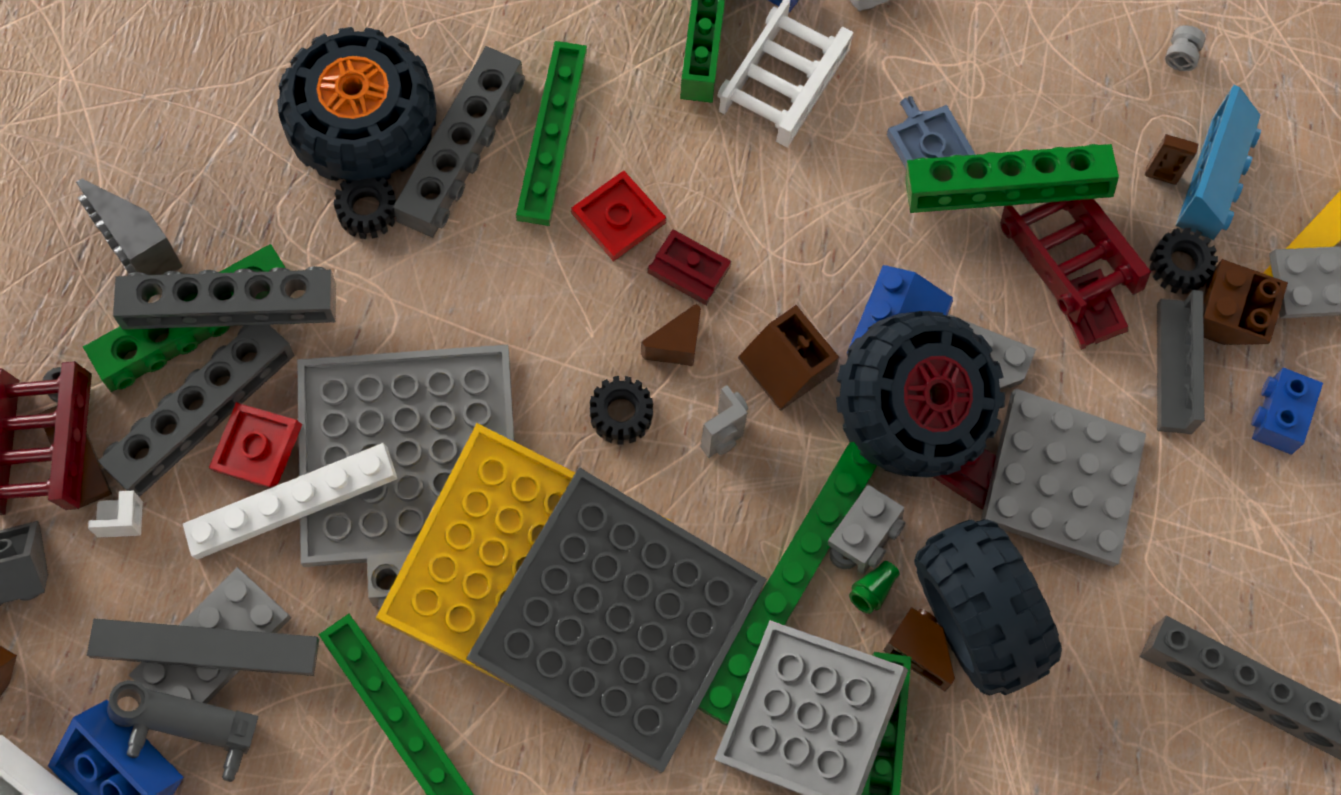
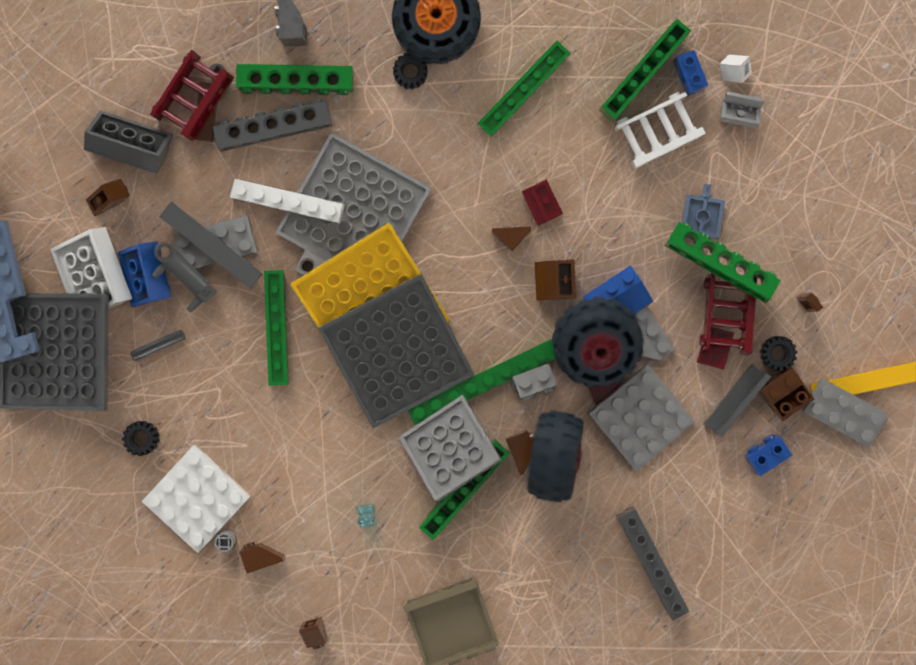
camera: 35 degrees right, 20 degrees up
(118, 516) = (208, 156): white panel -> none
(206, 310) = (268, 62): dark grey brick -> none
(255, 446) = (287, 163): red plate -> none
(490, 70) = (515, 36): dark grey brick -> none
(618, 215) = (526, 154): red plate -> none
(621, 390) = (463, 241): black tyre -> none
(723, 430) = (500, 297): light grey bracket -> none
(871, 590) = (517, 410): green cone -> none
(1185, 48) = (867, 247): light grey wheel -> none
(1220, 166) = (833, 319): dark azure slope -> none

